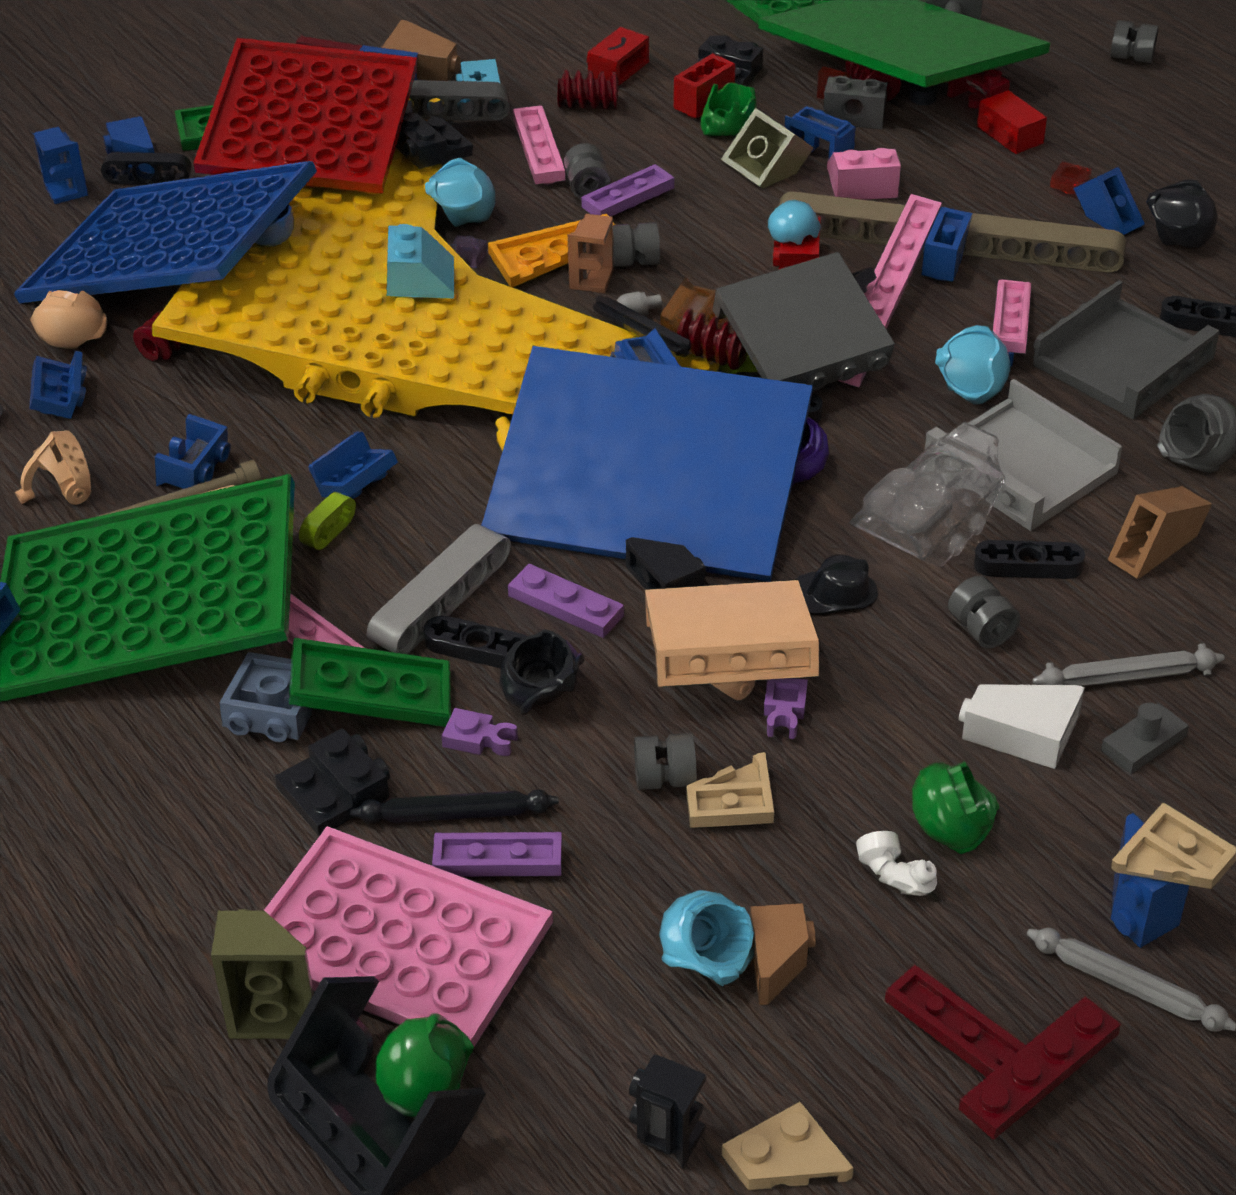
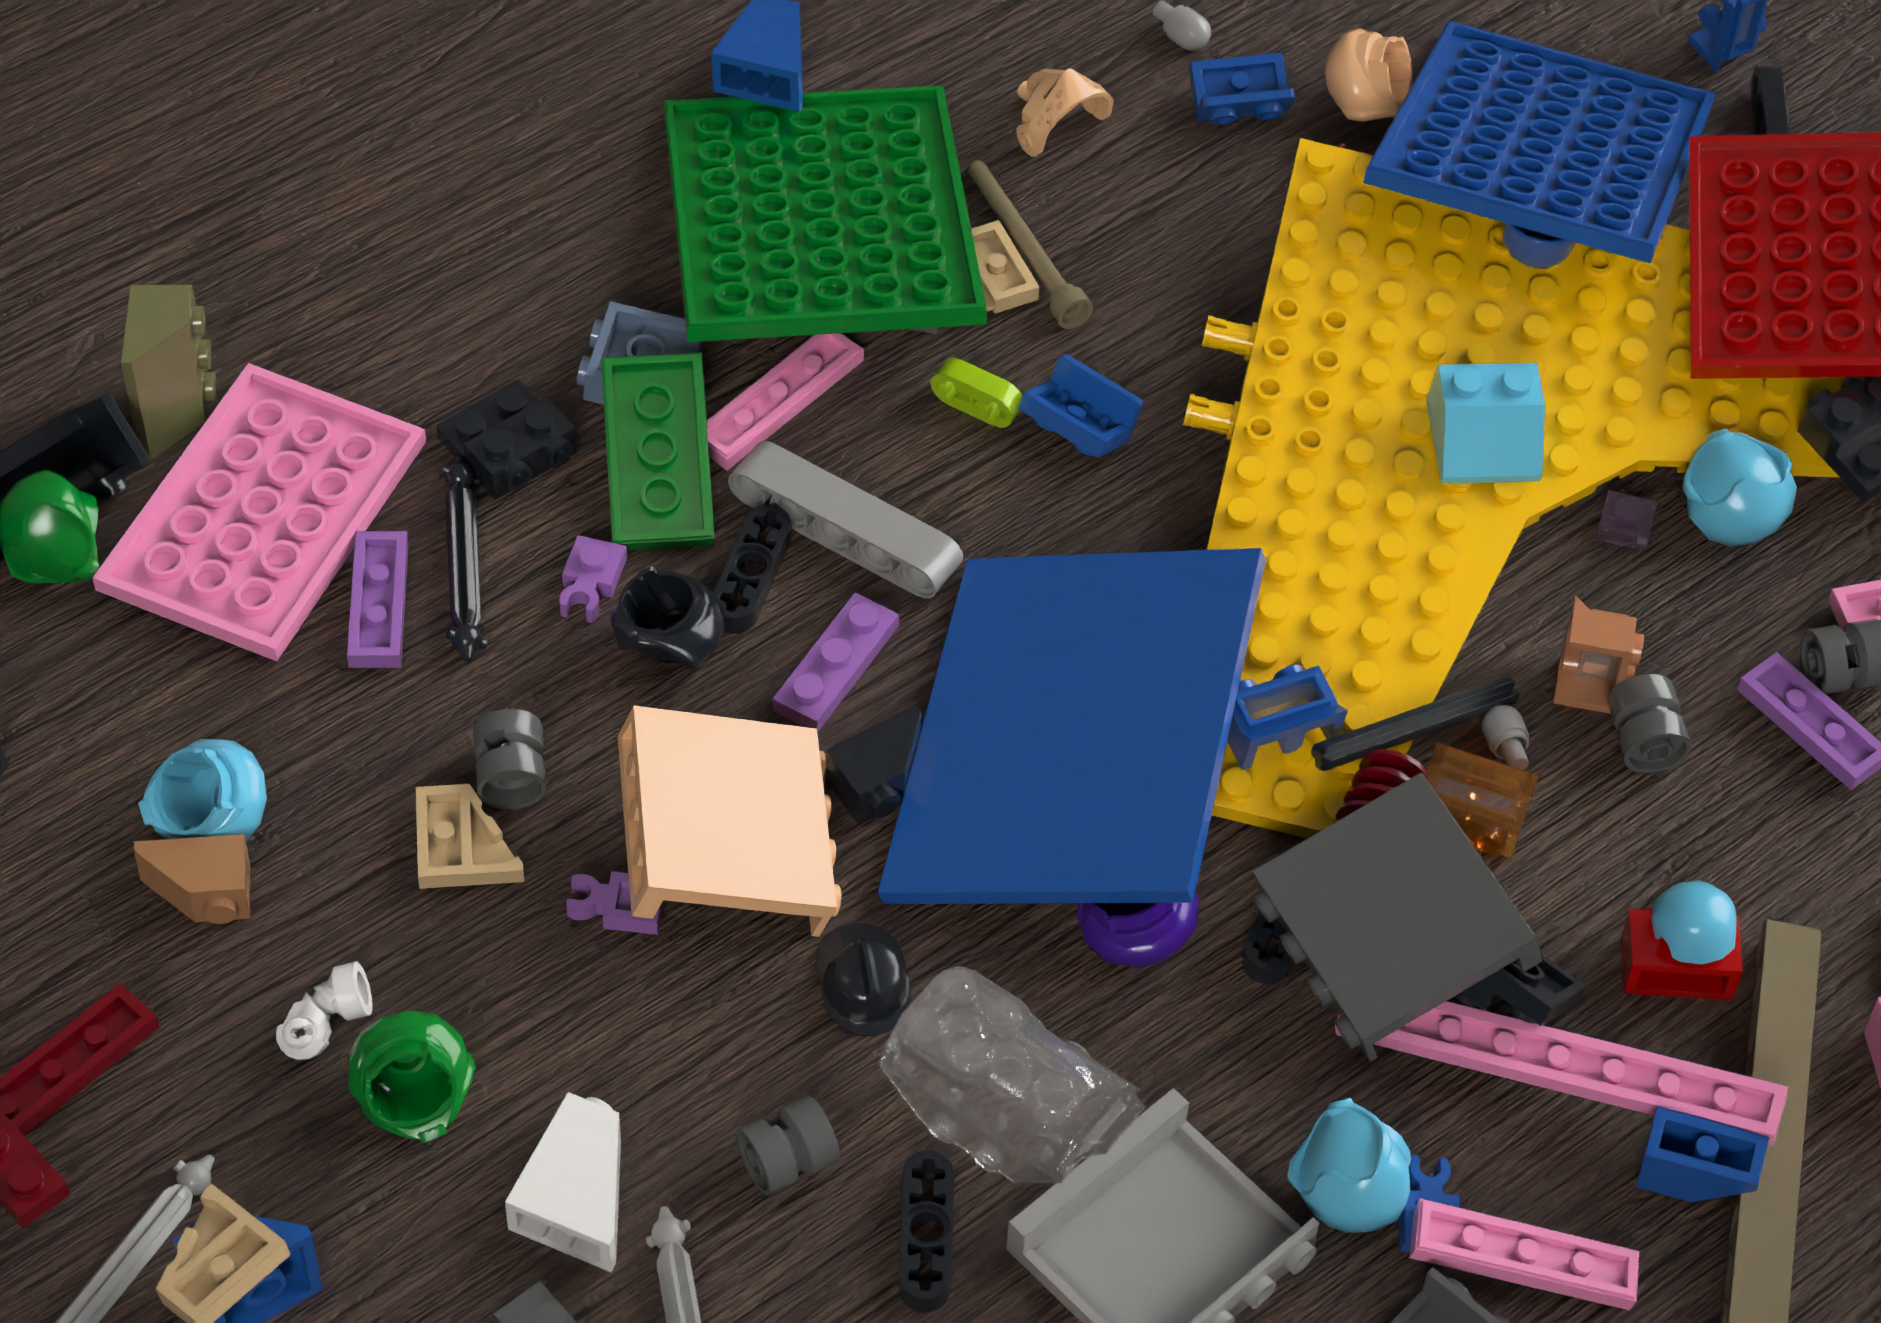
camera: 85 degrees right, 10 degrees up
(129, 136) = (1833, 96): blue slope -> none
(193, 459) = (1099, 245): blue window -> none
(532, 253) = (1623, 582): light orange wing -> none

